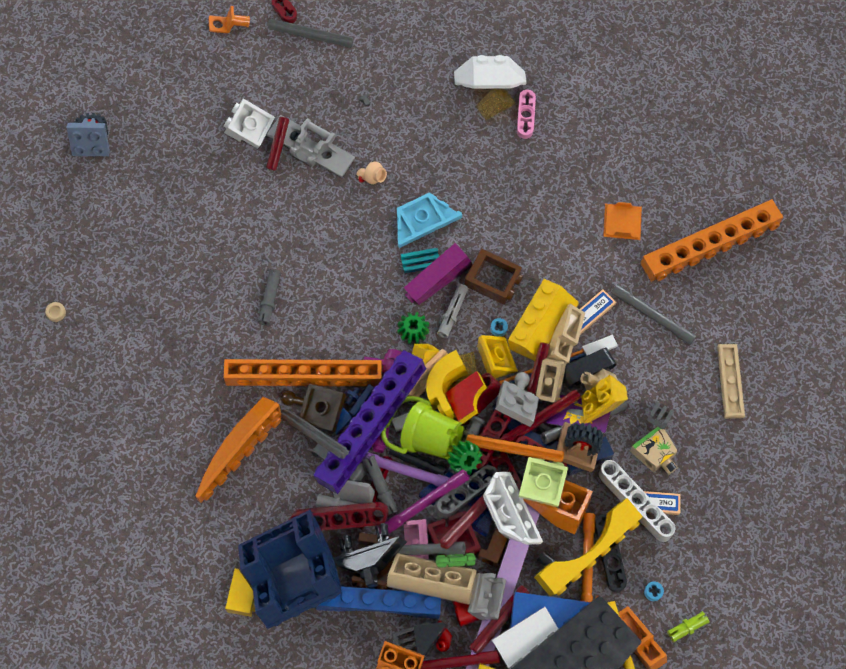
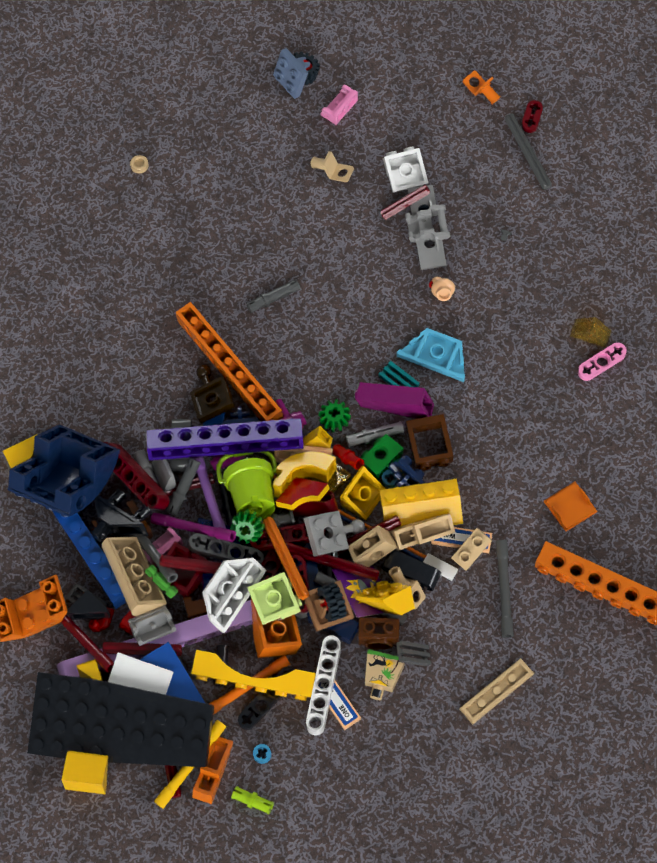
camera: 60 degrees right, 0 degrees up
(146, 127) = (340, 105): none -> bright pink hinge
(197, 173) = (331, 167): none -> tan bracket
(238, 444) = (135, 365): orange wedge -> none
(315, 434) = (182, 408): dark grey axle -> none
(459, 342) = (347, 456): none -> red pin
(476, 309) = (384, 446): none -> green brick
(489, 73) = (611, 308): white wedge -> none
(509, 312) = (404, 473): none -> dark blue hips
(608, 311) = (471, 549): none -> tan brick
(624, 427) = (378, 633): none -> reddish brown brick

